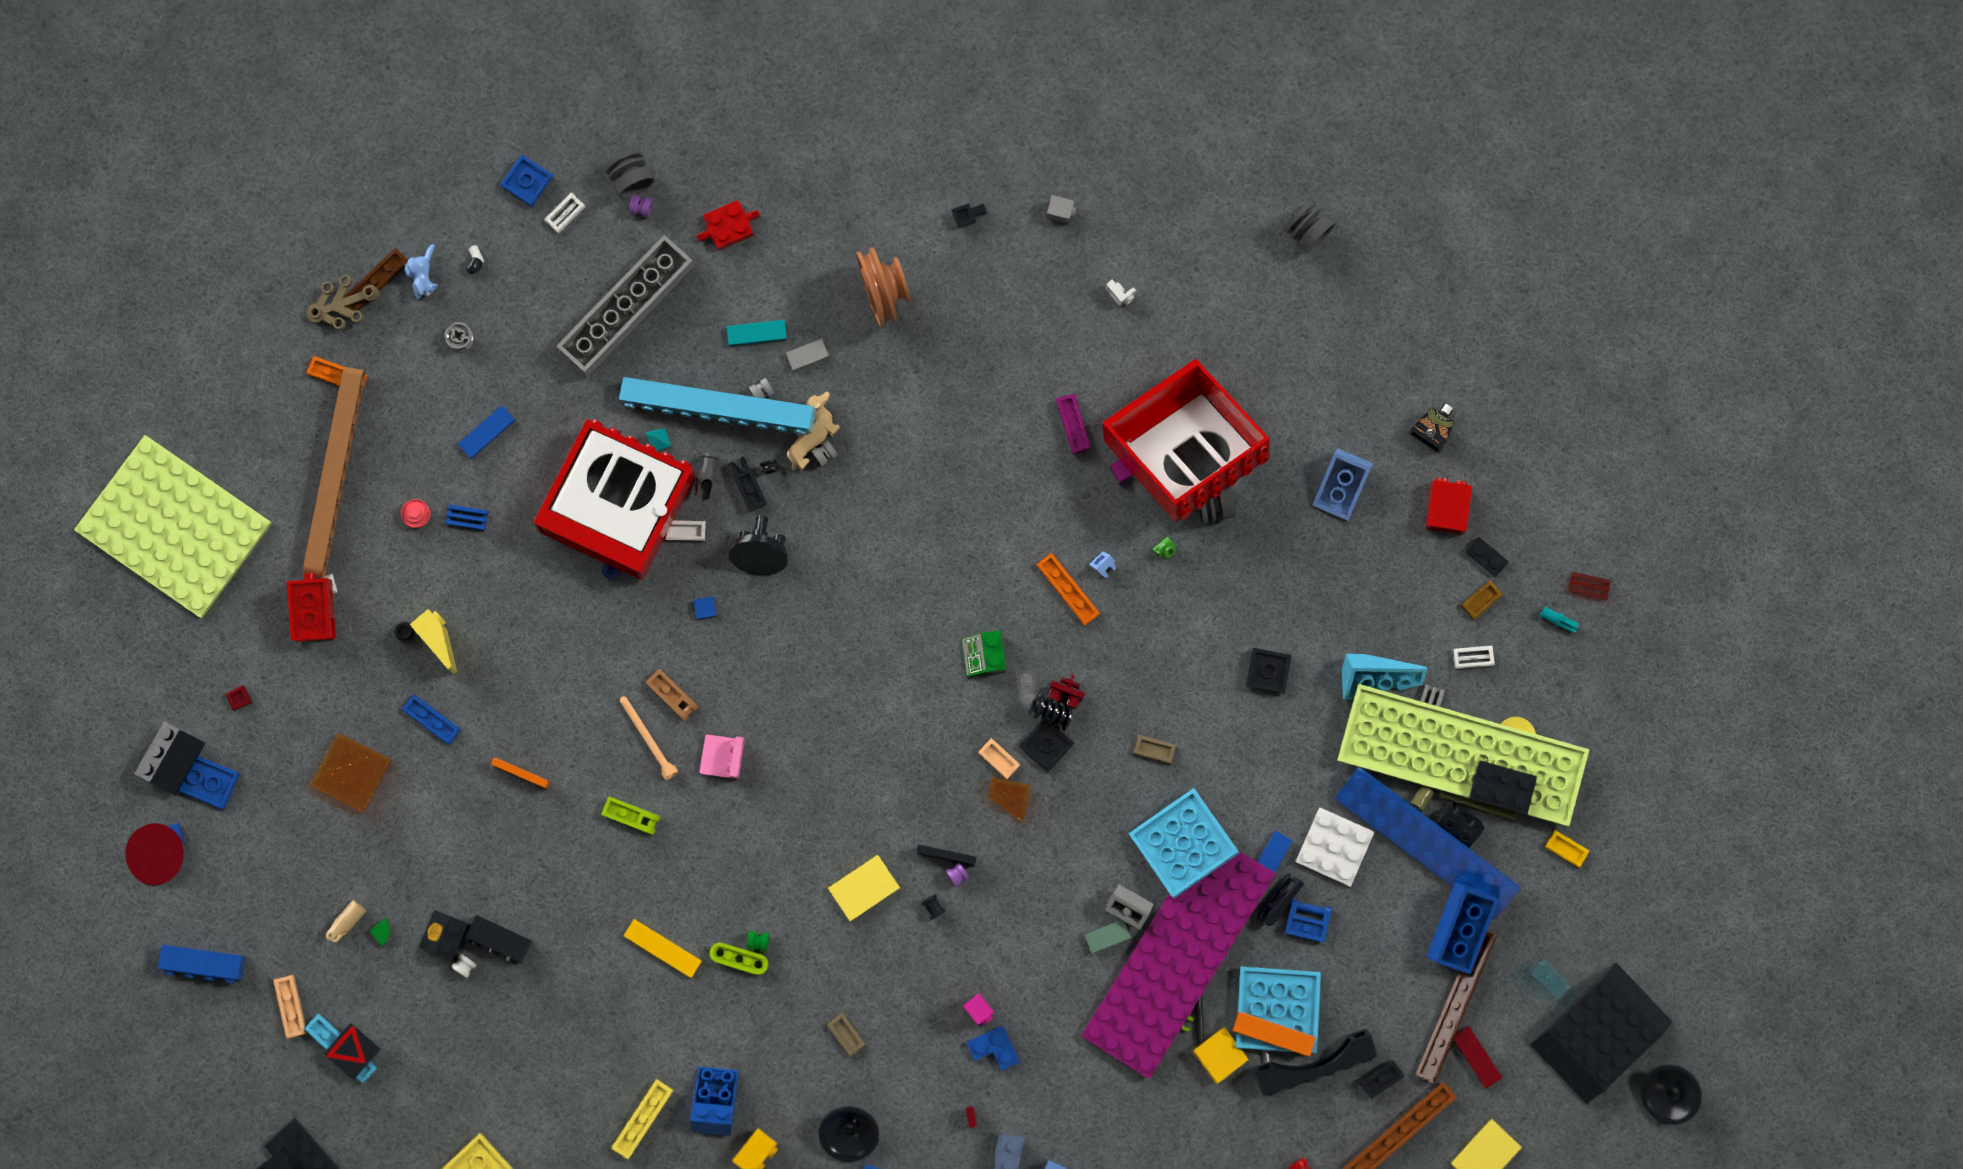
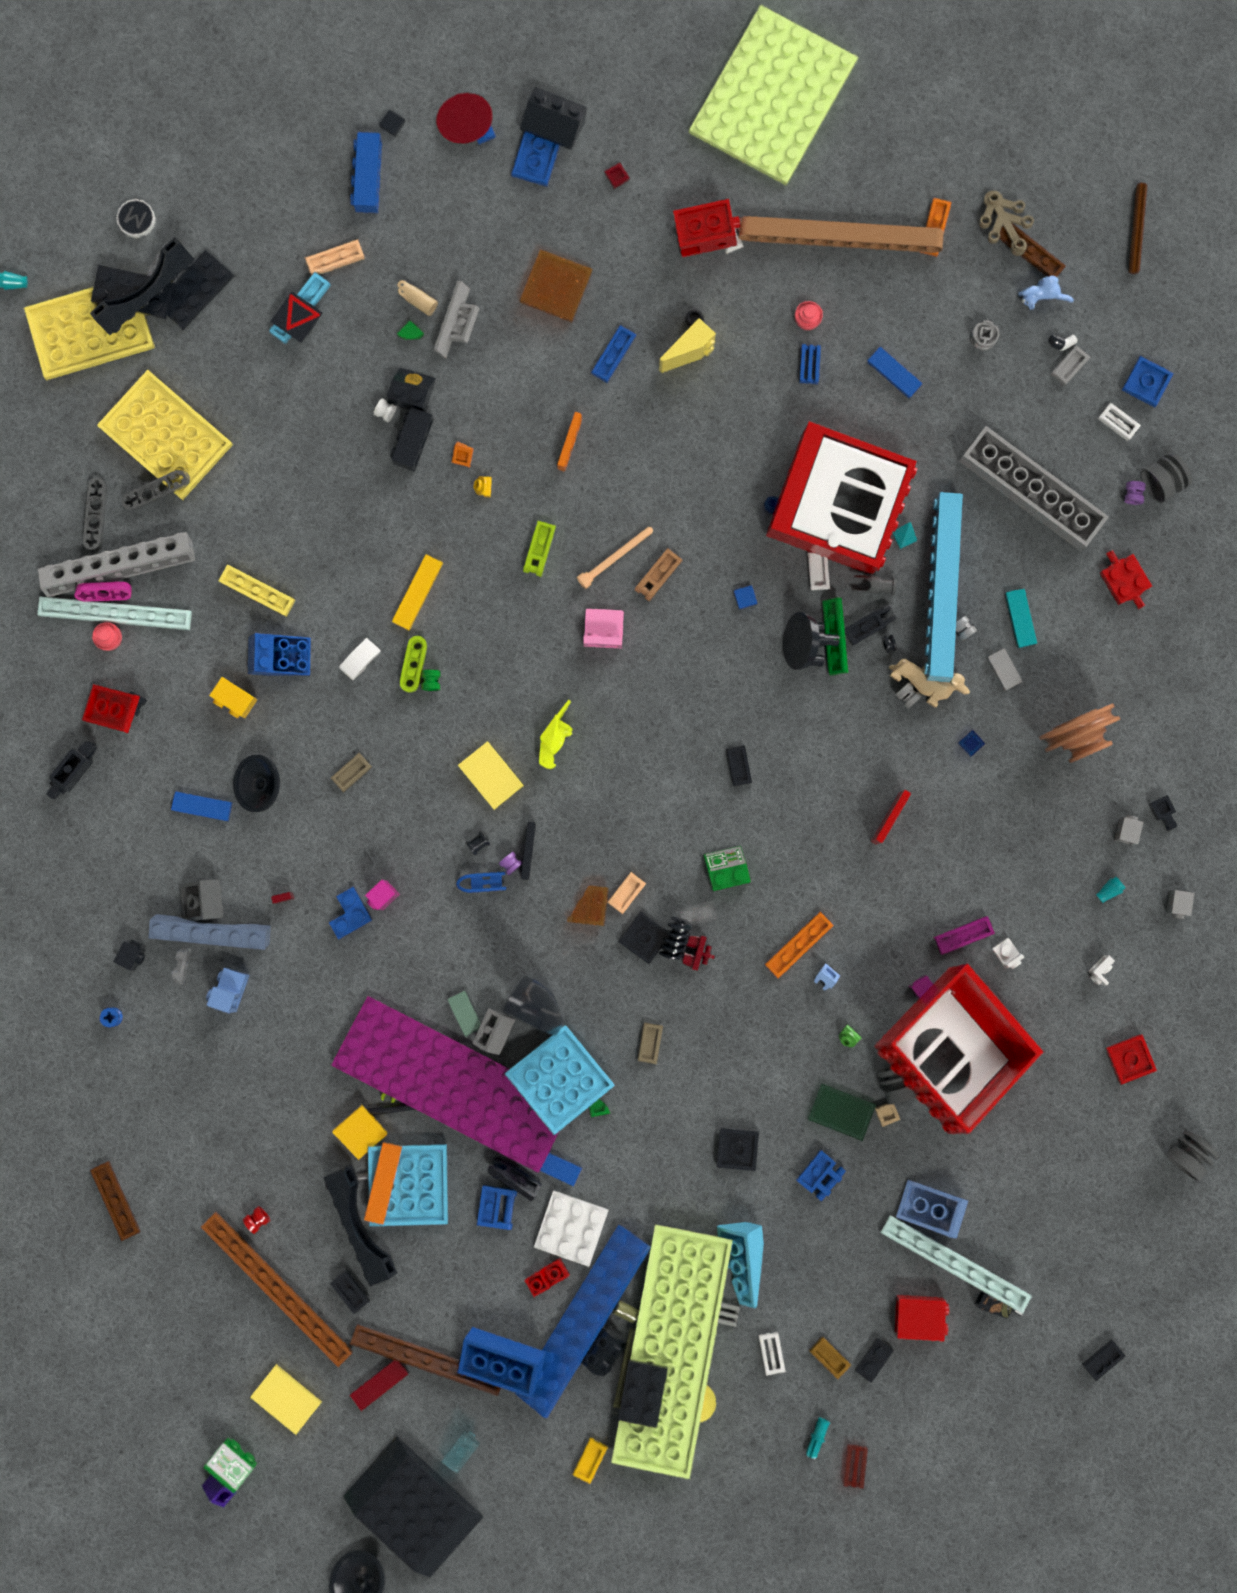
camera: 85 degrees right, 5 degrees up
(149, 932) = (392, 123): none -> black tile
(364, 171) = (1137, 228): none -> reddish brown axle
(377, 879) = (457, 321): none -> light grey bracket
(500, 255) = (1070, 365): none -> light grey tile
(520, 888) = (462, 454): none -> orange slope
(557, 869) = (482, 486): none -> yellow plate
(727, 1015) = (359, 659): none -> white slope
(745, 520) = (835, 625): none -> green tile
(833, 818) = (553, 739): none -> neon yellow animal
(879, 396) = (971, 743): none -> clear blue tile
(879, 631) = (739, 766): none -> black tile
(947, 483) = (890, 817): none -> red tile
(974, 911) = (477, 882): none -> blue piece
(983, 250) = (1129, 830): none -> light grey brick
(1040, 275) = (1110, 889): none -> teal cone
(1096, 382) = (1008, 954): none -> white bracket
(1106, 859) = (535, 1006): none -> black panel
(1210, 274) = (1131, 1059): none -> red plate
(1217, 807) = (598, 1109): none -> green tile
(1239, 563) = (841, 1112): none -> clear green tile
(1245, 518) = (887, 1114): none -> tan tile
(1296, 594) = (816, 1172): none -> blue plate
(1382, 876) = (547, 1277): none -> red slope
(1397, 466) = (956, 1264): none -> light aqua tile
(1502, 334) = (1103, 1360): none -> black plate

